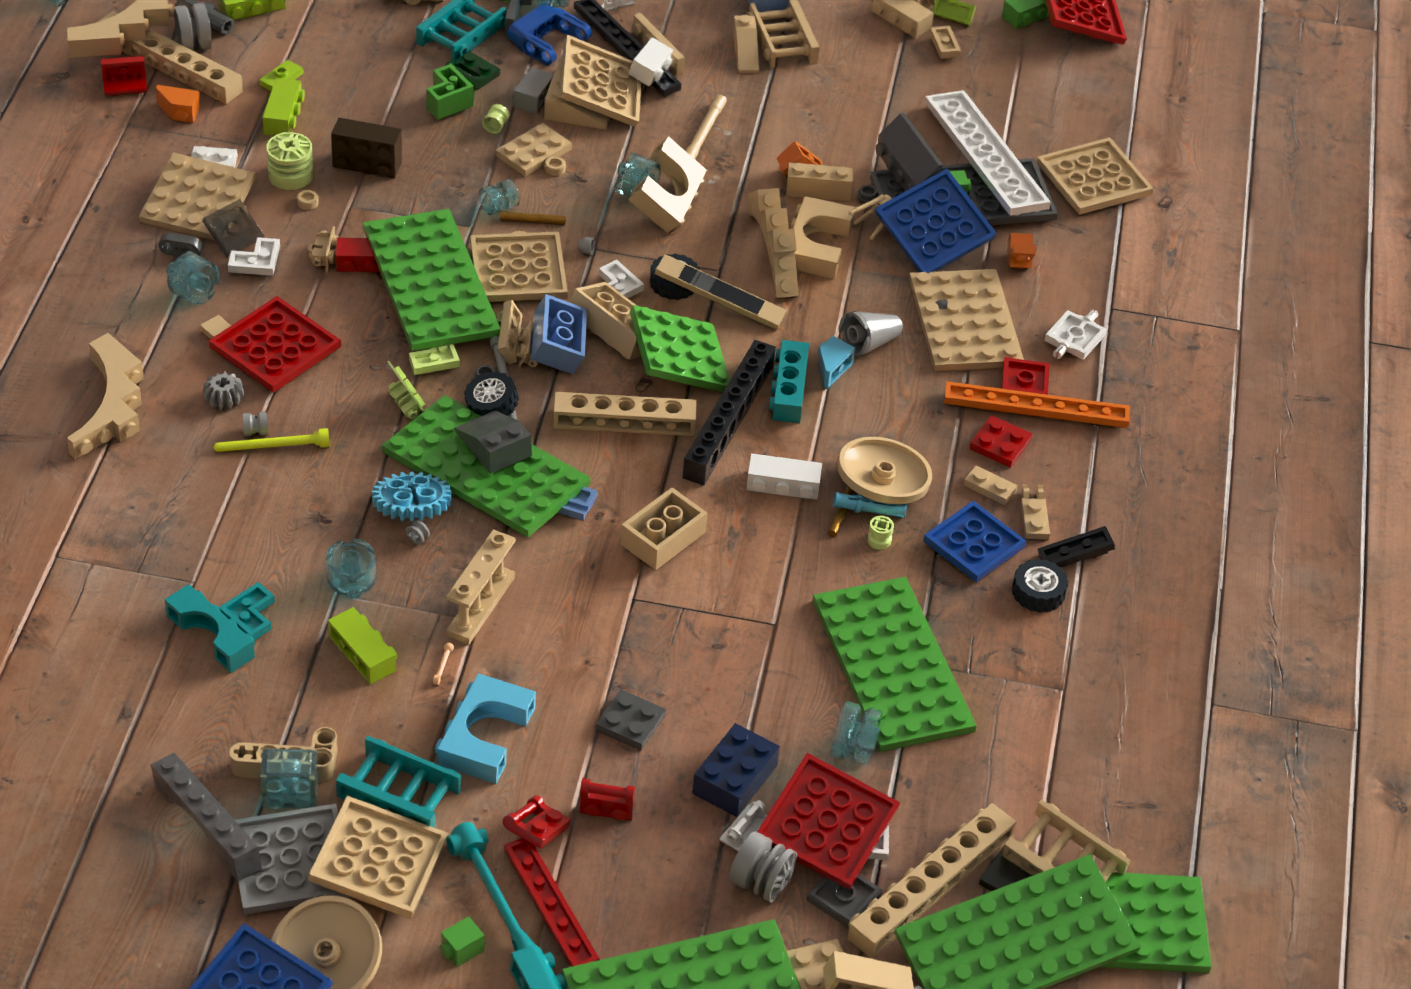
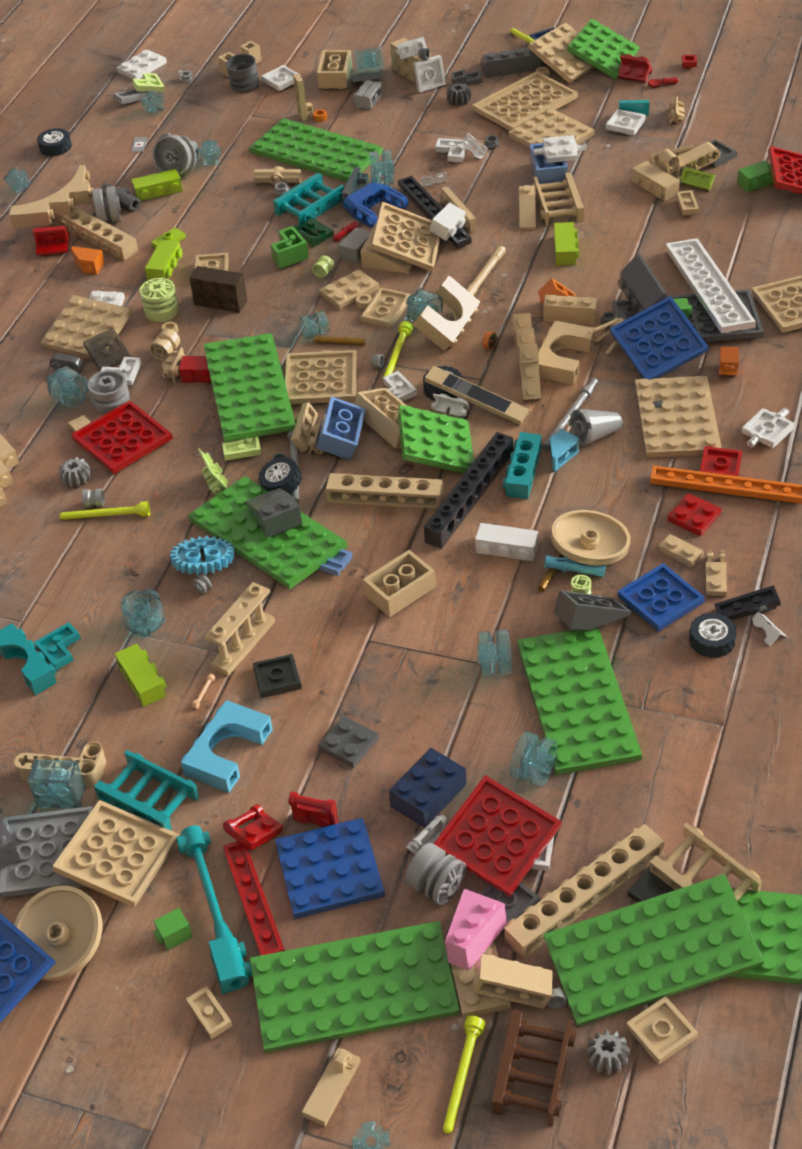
camera: 15 degrees right, 0 degrees up
(247, 283) = (108, 390): none -> light grey wheel
(308, 222) = (164, 344): none -> tan wheel
(347, 108) = (215, 261): none -> tan plate
(420, 10) = (281, 188): none -> light grey plate
(521, 64) = (344, 231): none -> red piece
(529, 643) = (277, 675): none -> pearl dark grey tile
(584, 175) = (385, 308): none -> tan tile
(615, 205) = (405, 329): none -> neon yellow piece
(633, 865) = (329, 868): none -> blue plate
(698, 305) = (458, 407): none -> white hinge
(724, 220) = (489, 340): none -> tile
(793, 611) = (492, 653): none -> clear light blue wheel
(801, 94) = (565, 243): none -> lime brick
(817, 924) = (473, 928): none -> bright pink wedge
(851, 290) = (586, 392): none -> light grey bar
(893, 558) = (588, 610): none -> dark grey slope
(1106, 580) = (772, 631): none -> white piece

